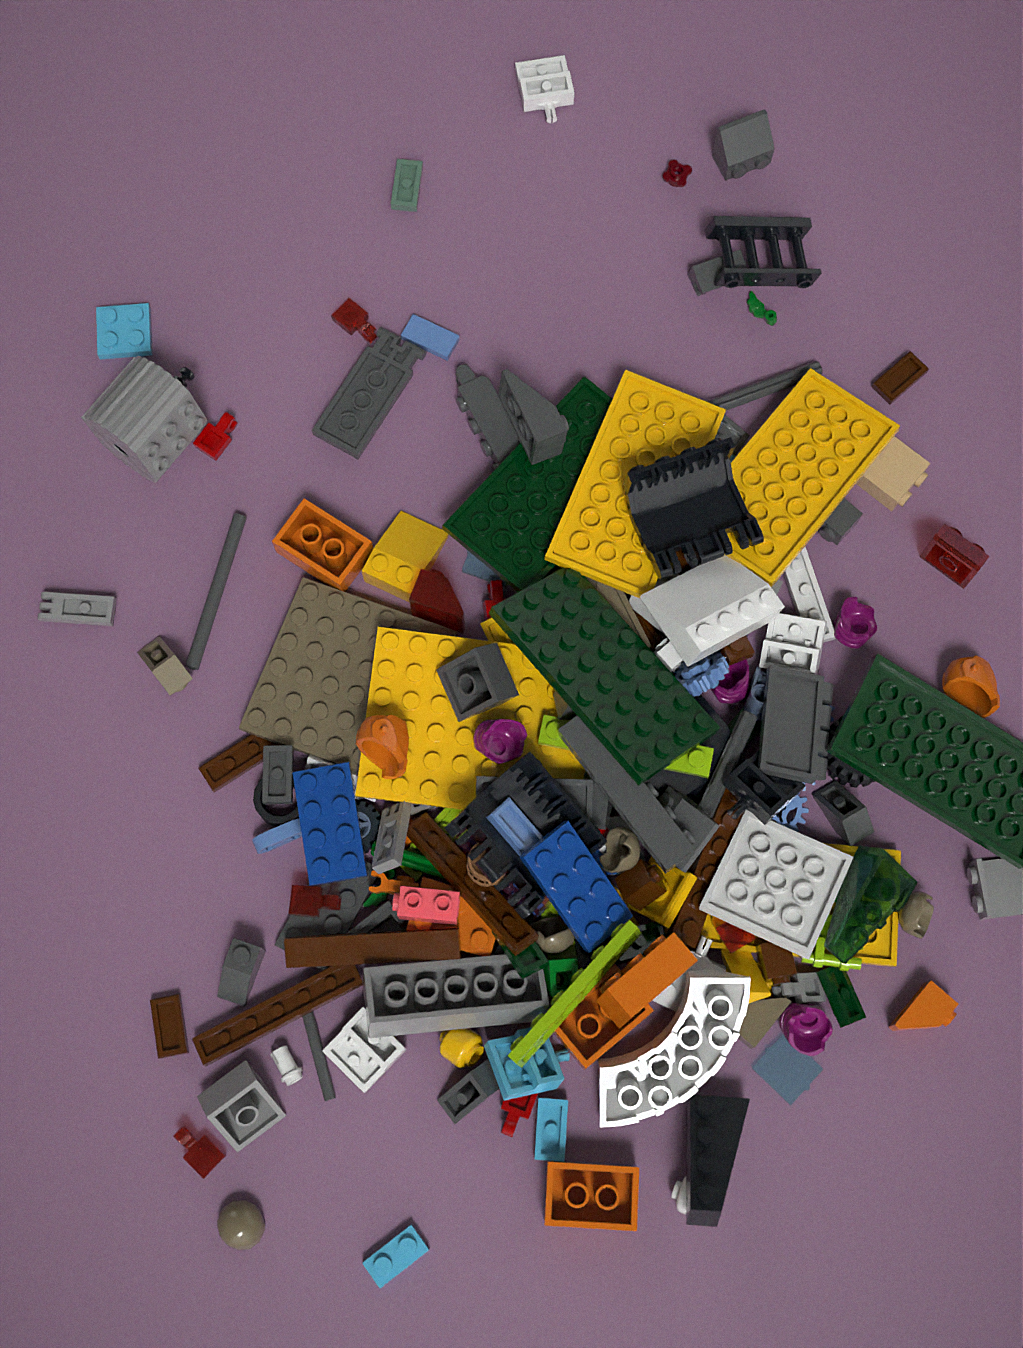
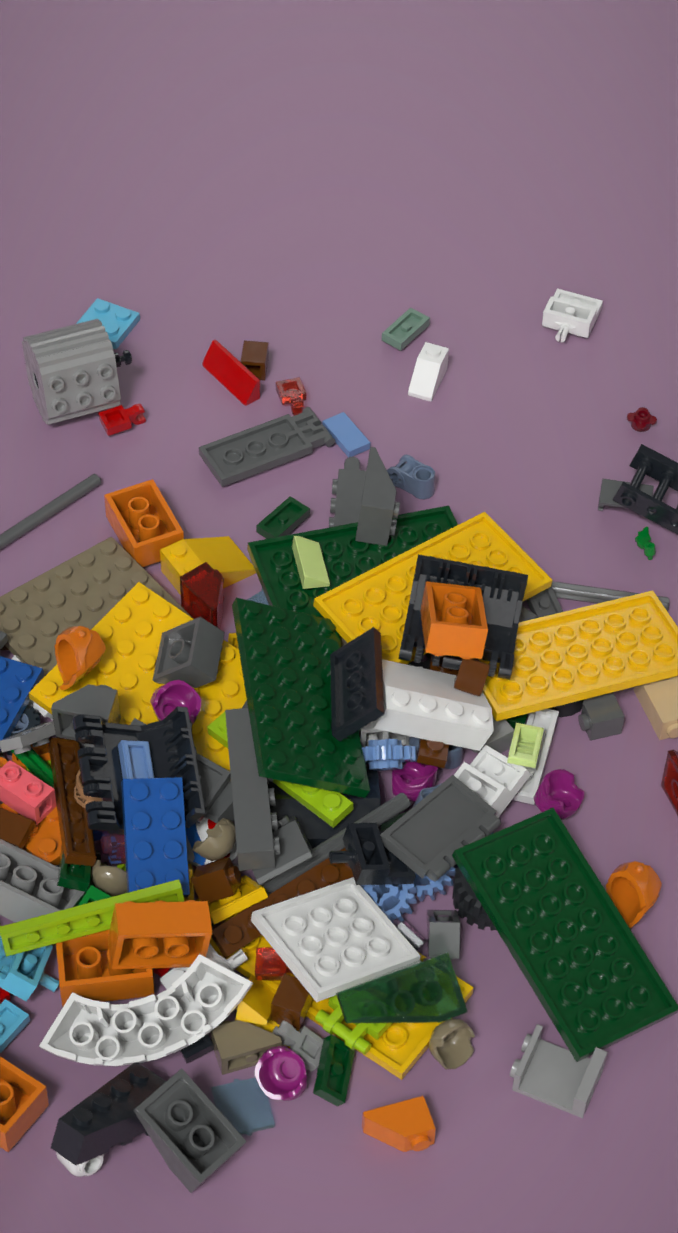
camera: 30 degrees right, 25 degrees down
(282, 327) = (232, 373): none -> red slope
(294, 300) = (256, 357): none -> reddish brown brick
(439, 467) = (283, 519): none -> dark green plate
(440, 796) = (88, 700): none -> dark grey slope
(461, 225) = (428, 371): none -> white slope
(513, 516) = (310, 563): none -> yellowish green slope
(519, 353) = (414, 477): none -> sand blue piece
(653, 636) = (356, 684): none -> black plate
(693, 520) = (453, 620): none -> orange brick
(733, 562) = (471, 676): none -> reddish brown slope
(780, 1133) = (188, 1130): none -> dark grey slope
(807, 579) = (525, 745): none -> yellowish green slope
(822, 832) = (411, 935): none -> tile

